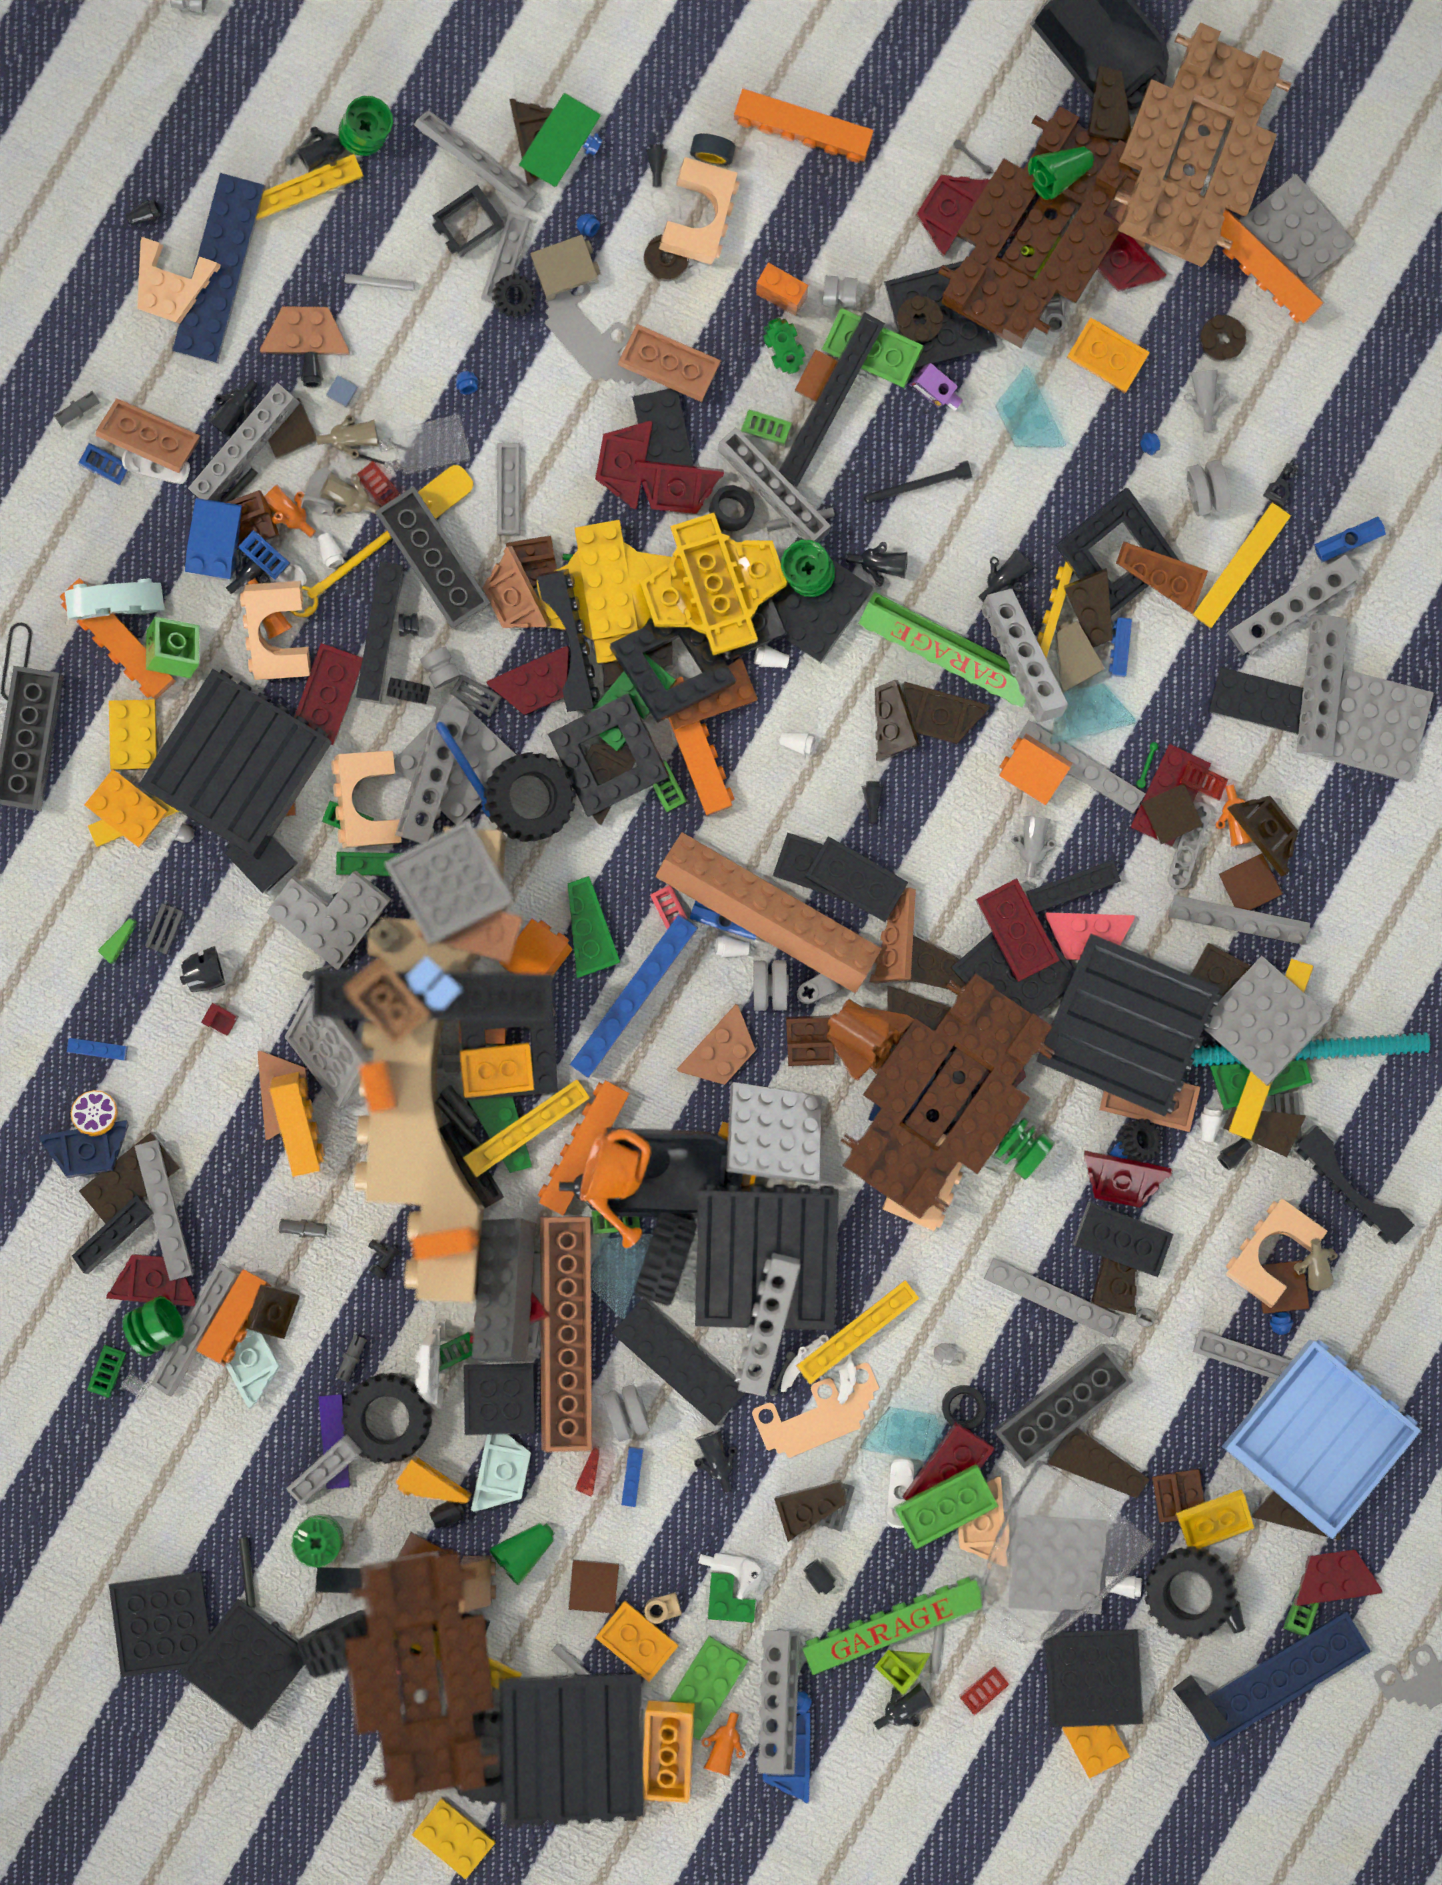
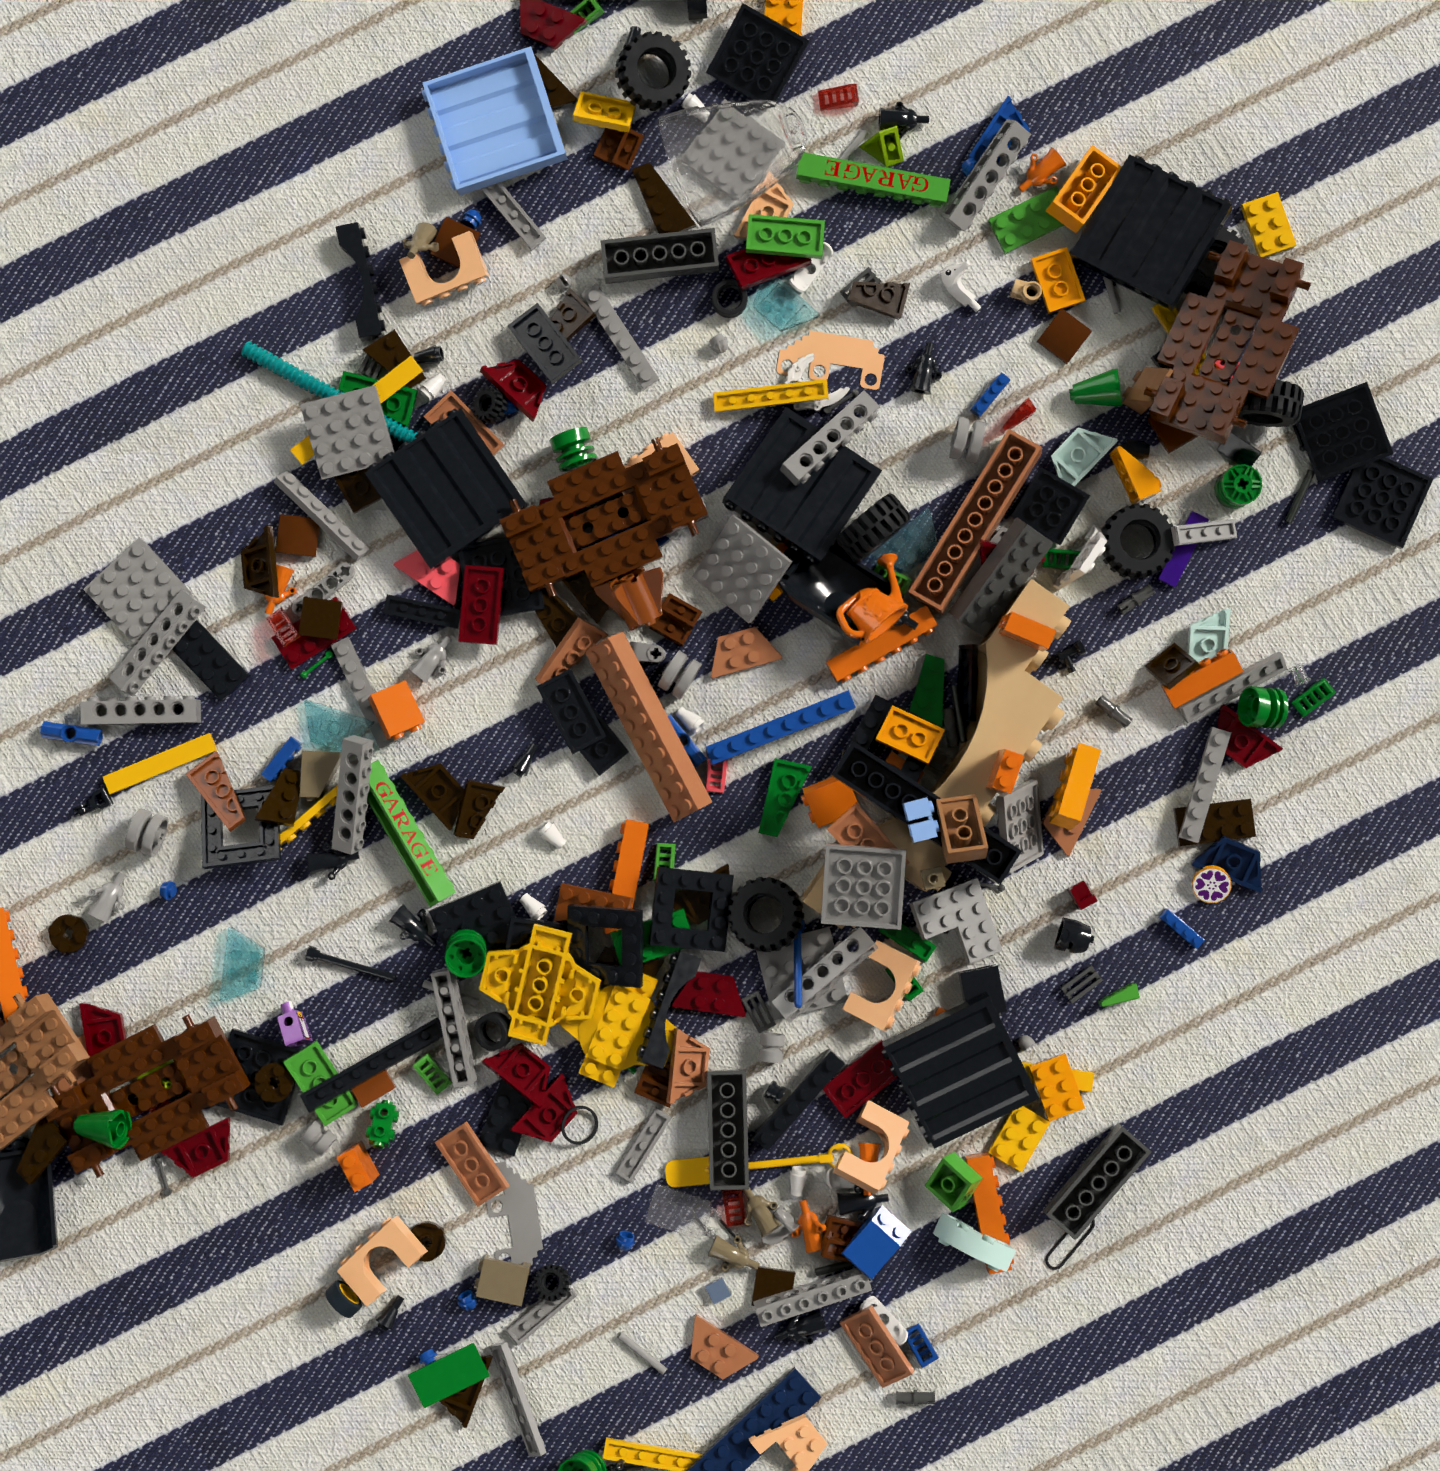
camera: 150 degrees left, 0 degrees up
(112, 1234) = (1251, 790): black plate -> none
(248, 543) = (850, 1223): blue slope -> none
(311, 370) = (731, 1318): black cone -> none
(408, 691) = (804, 1045): black tyre -> none
(473, 194) = (534, 1374): black window -> none
(526, 1128) = (914, 682): yellow plate -> none
(566, 471) = (563, 1124): none -> black piece
(678, 1362) = (908, 454): black plate -> none
(723, 1604) = (981, 268): green plate -> none
(803, 125) = (268, 1275): orange brick -> none
(819, 1577) = (903, 244): black brick -> none
(1055, 312) = (174, 1025): light grey piece -> none
(1108, 355) = (157, 972): light orange plate -> none

